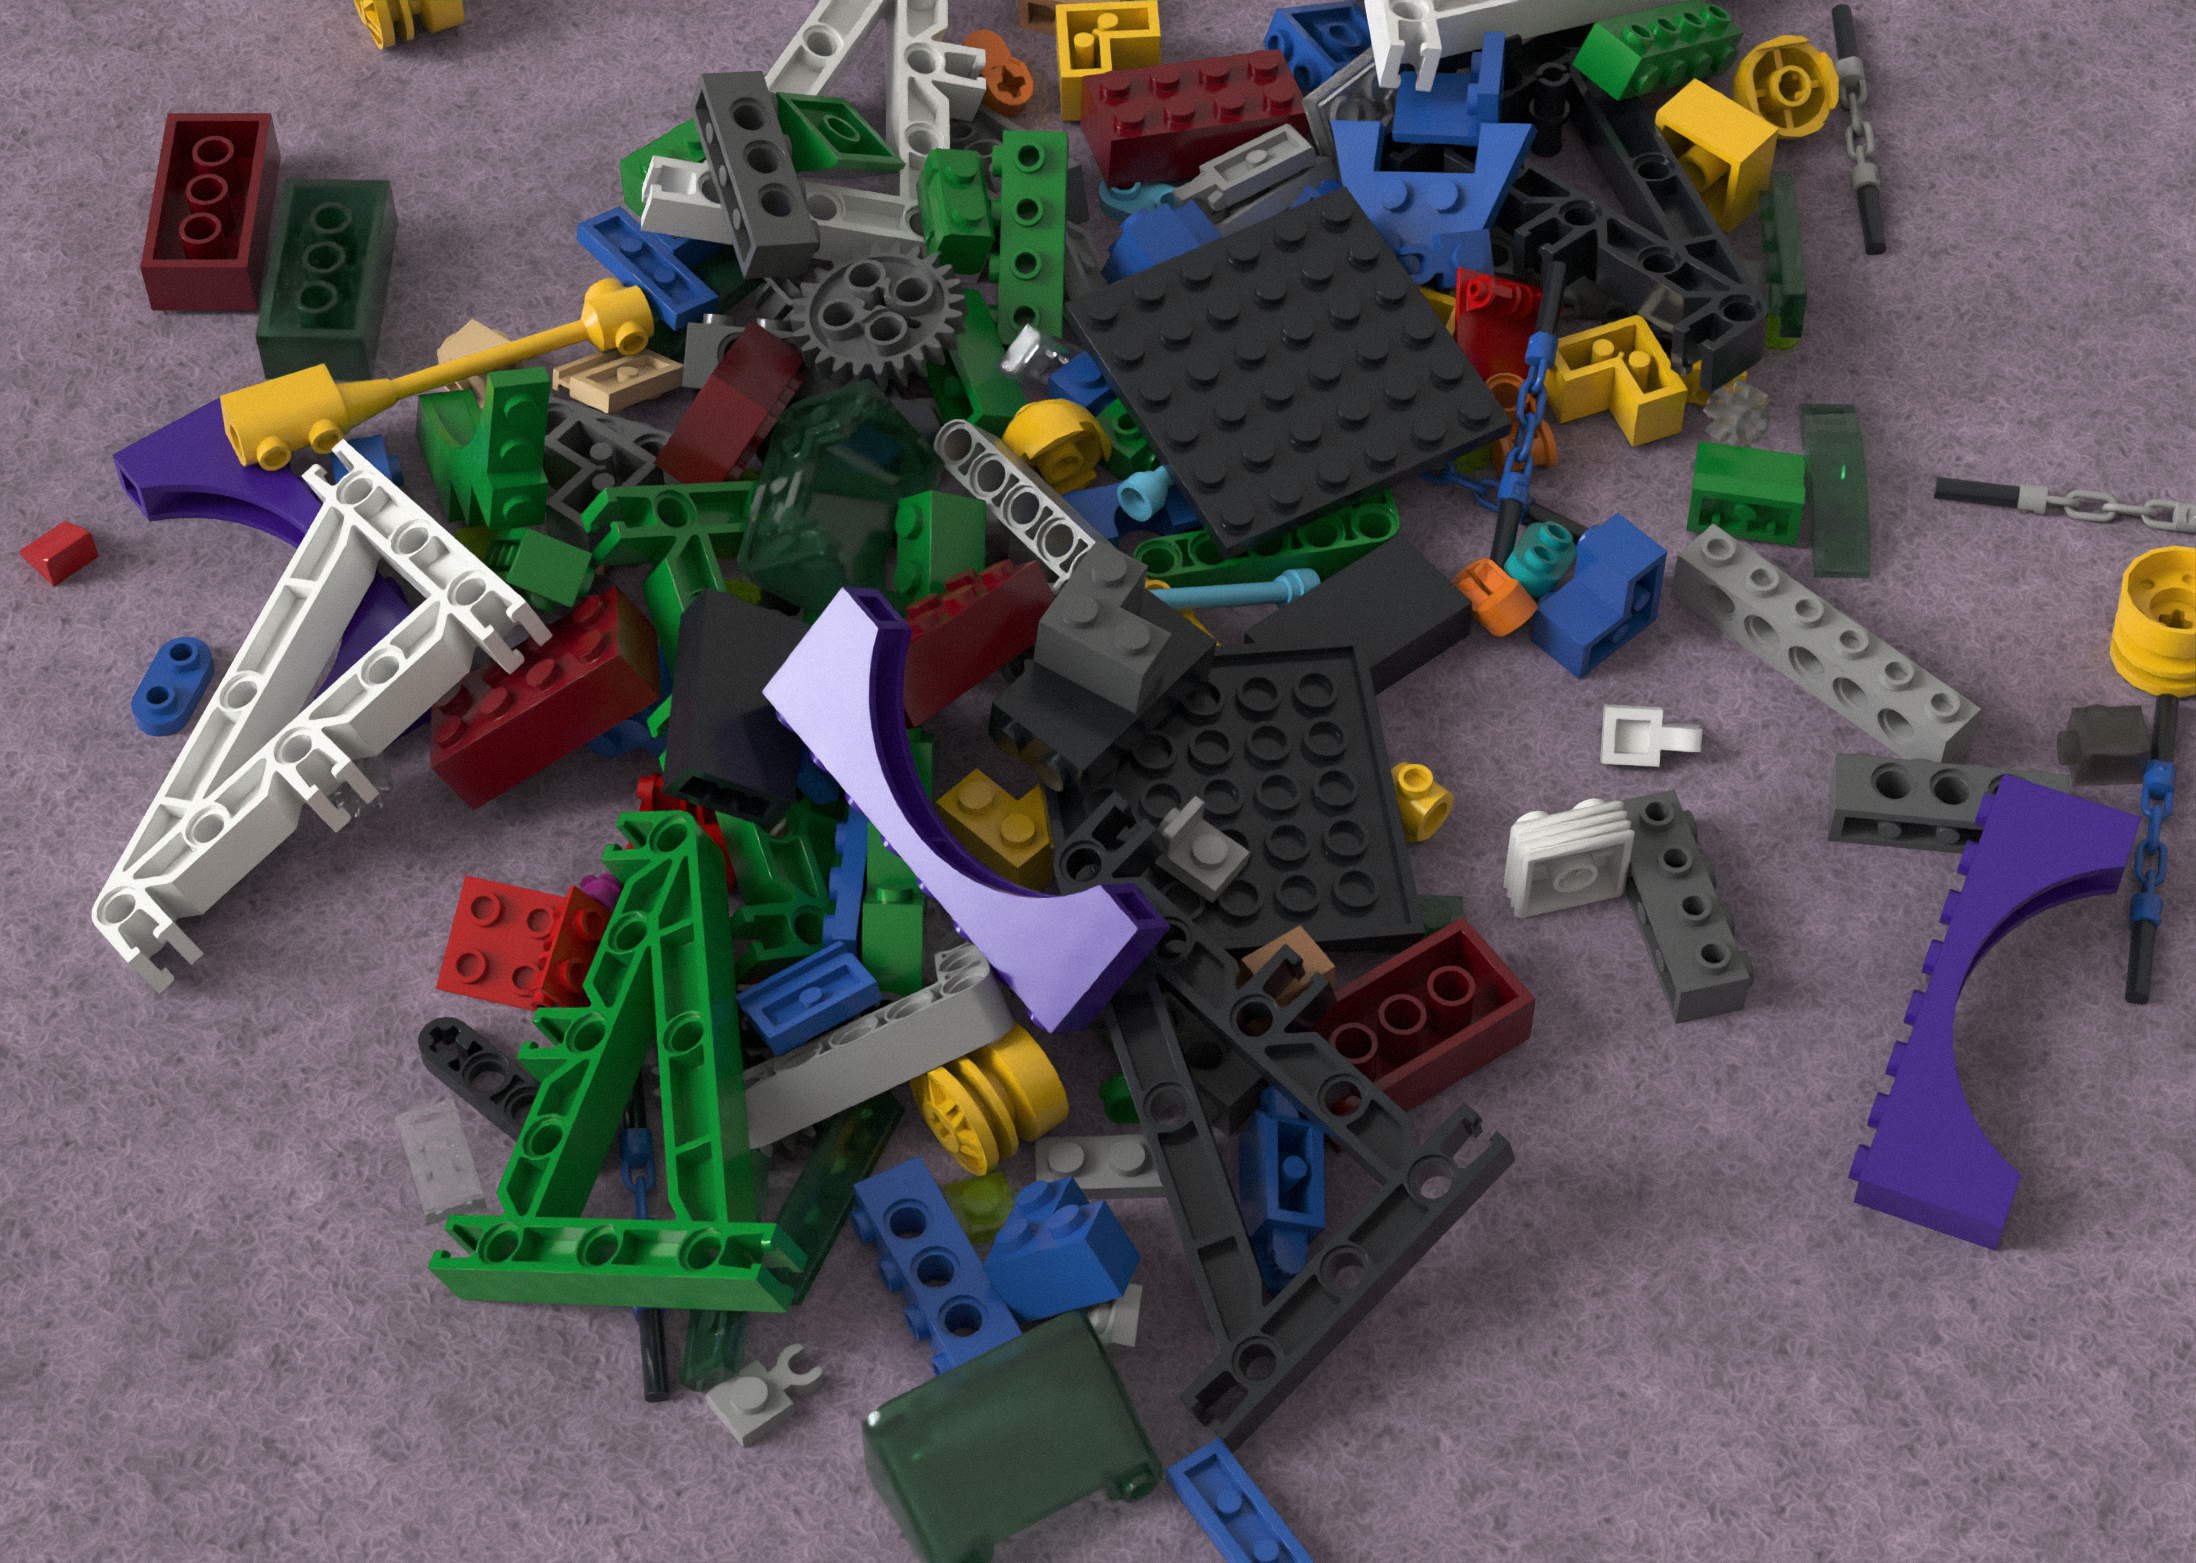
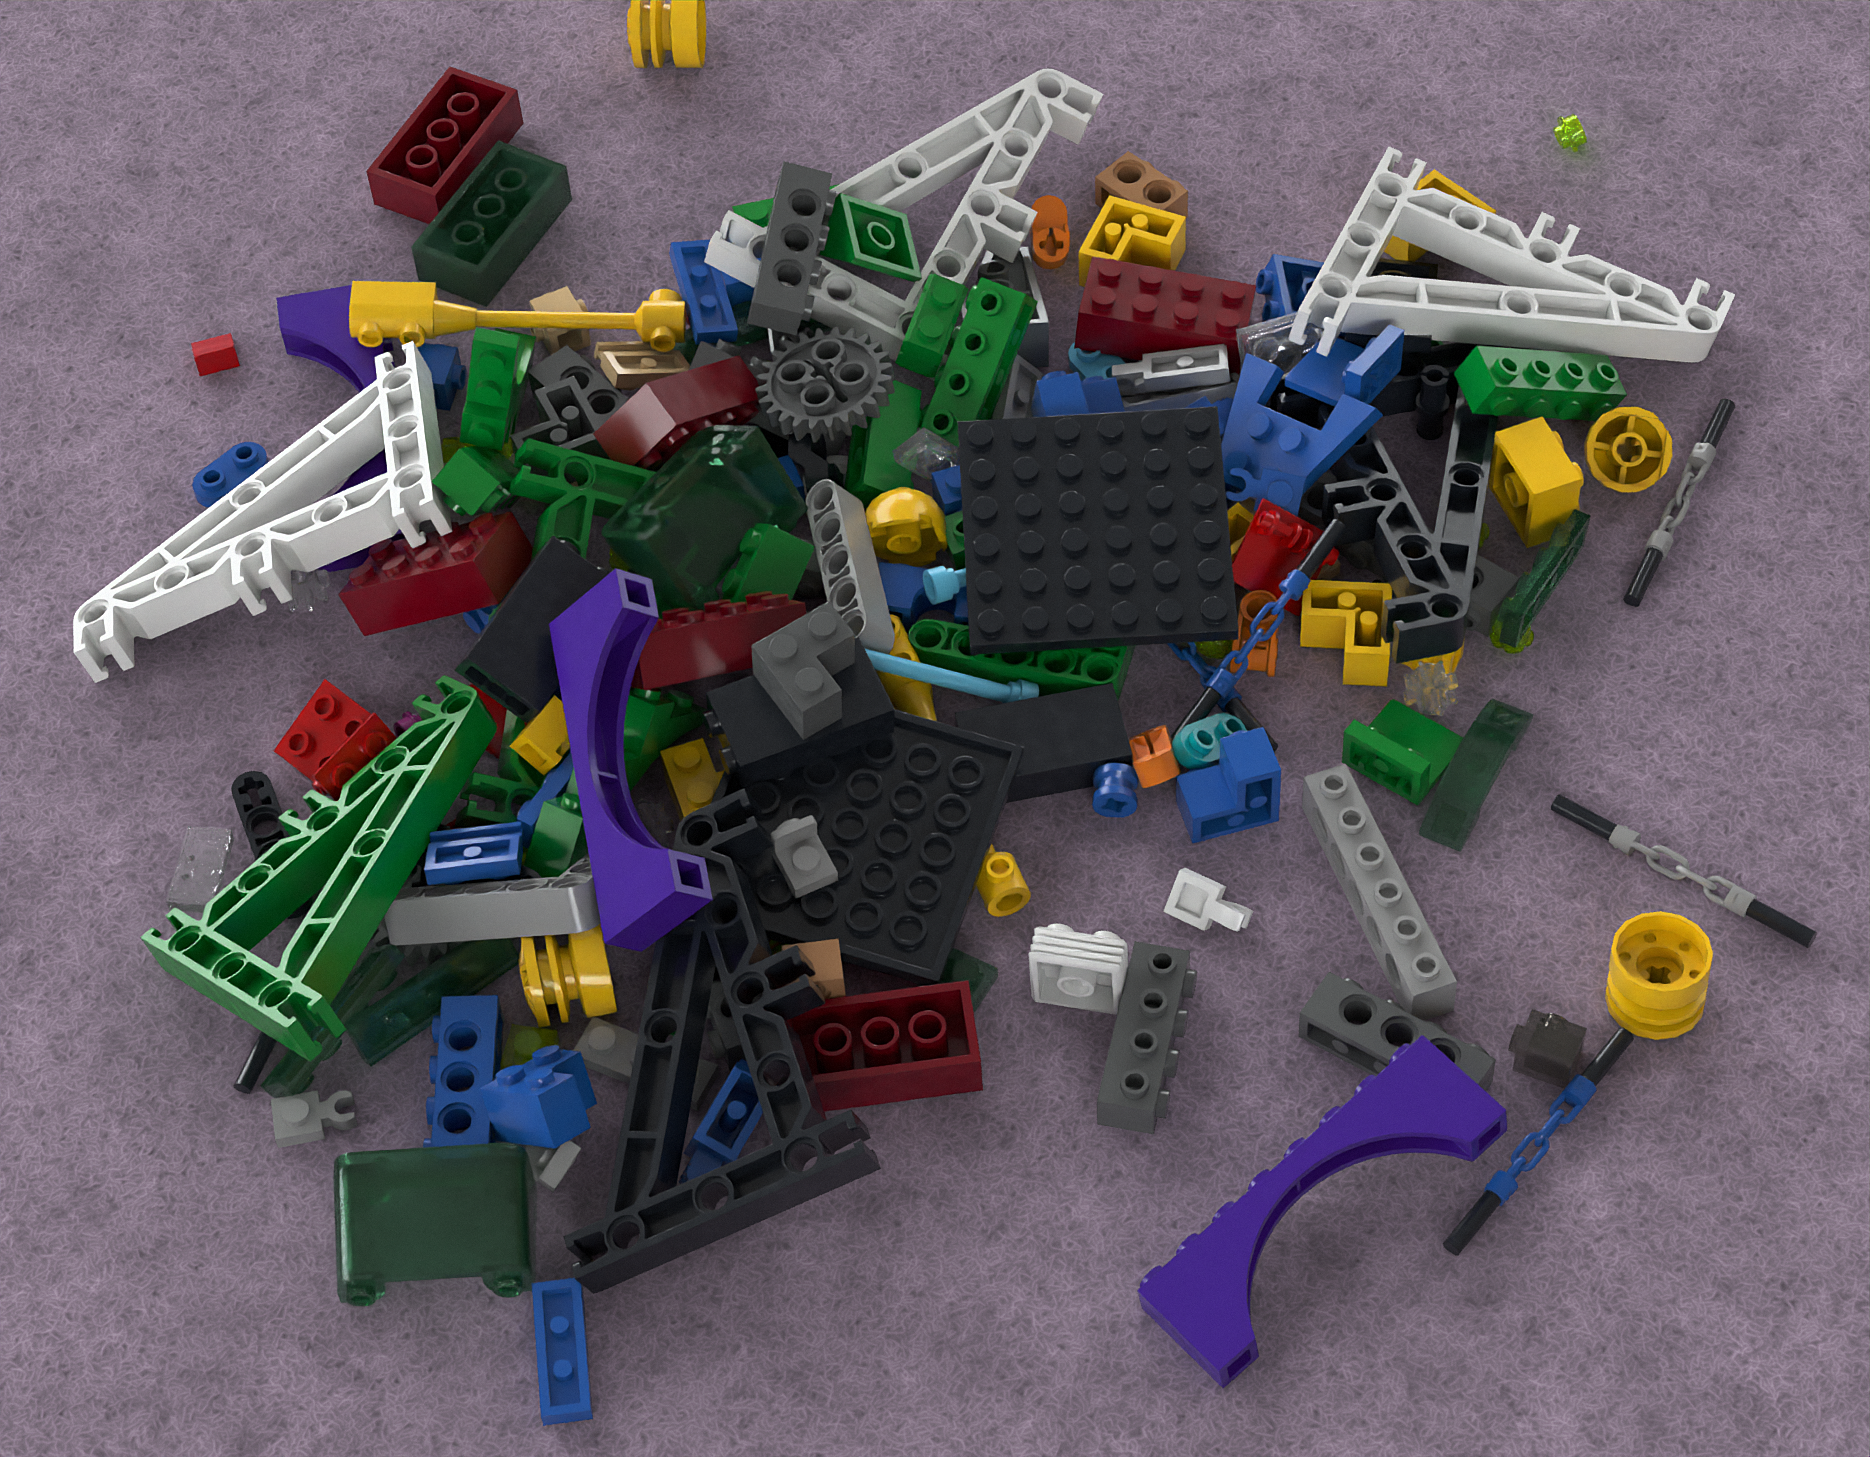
camera: 30 degrees right, 0 degrees up
(807, 832) = (544, 737): none -> yellow brick
(1468, 651) = (1115, 790): none -> blue wheel

